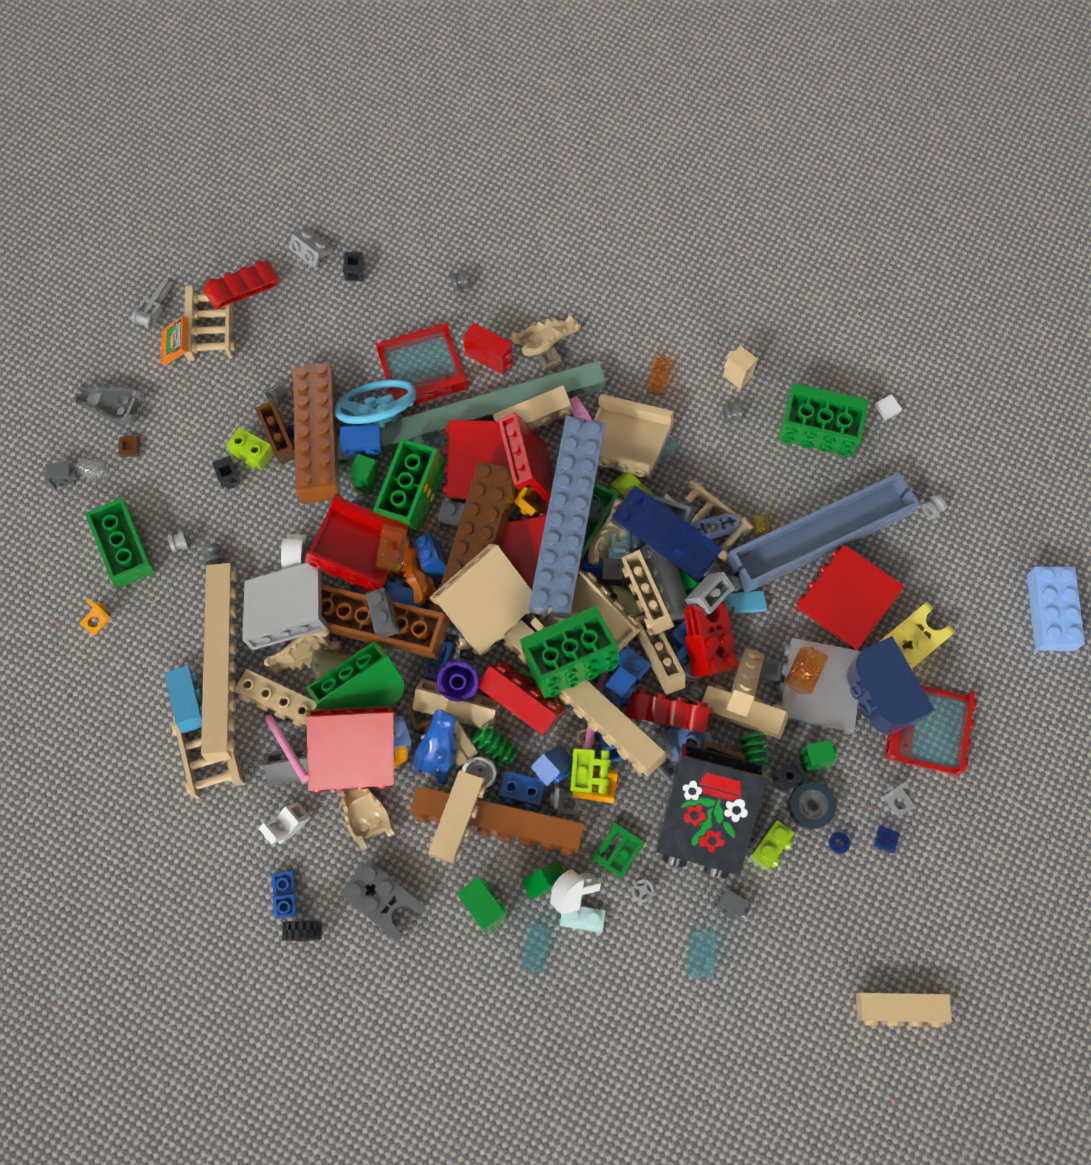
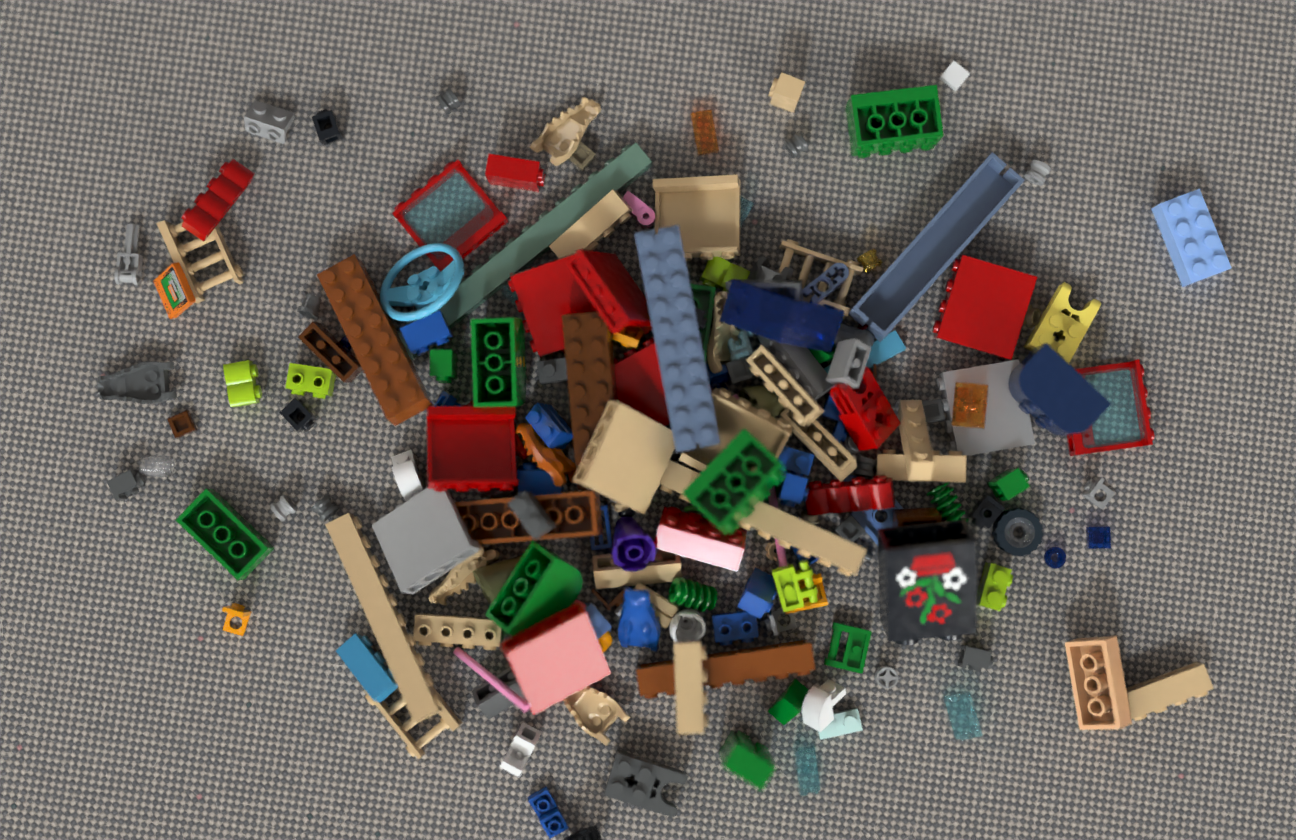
camera: 20 degrees left, 15 degrees up
(193, 431) = (241, 383): none -> lime brick
(390, 539) = (507, 450): clear orange brick -> none
(840, 971) = (1098, 683): none -> light nougat brick
(888, 622) = (1032, 316): none -> dark tan plate

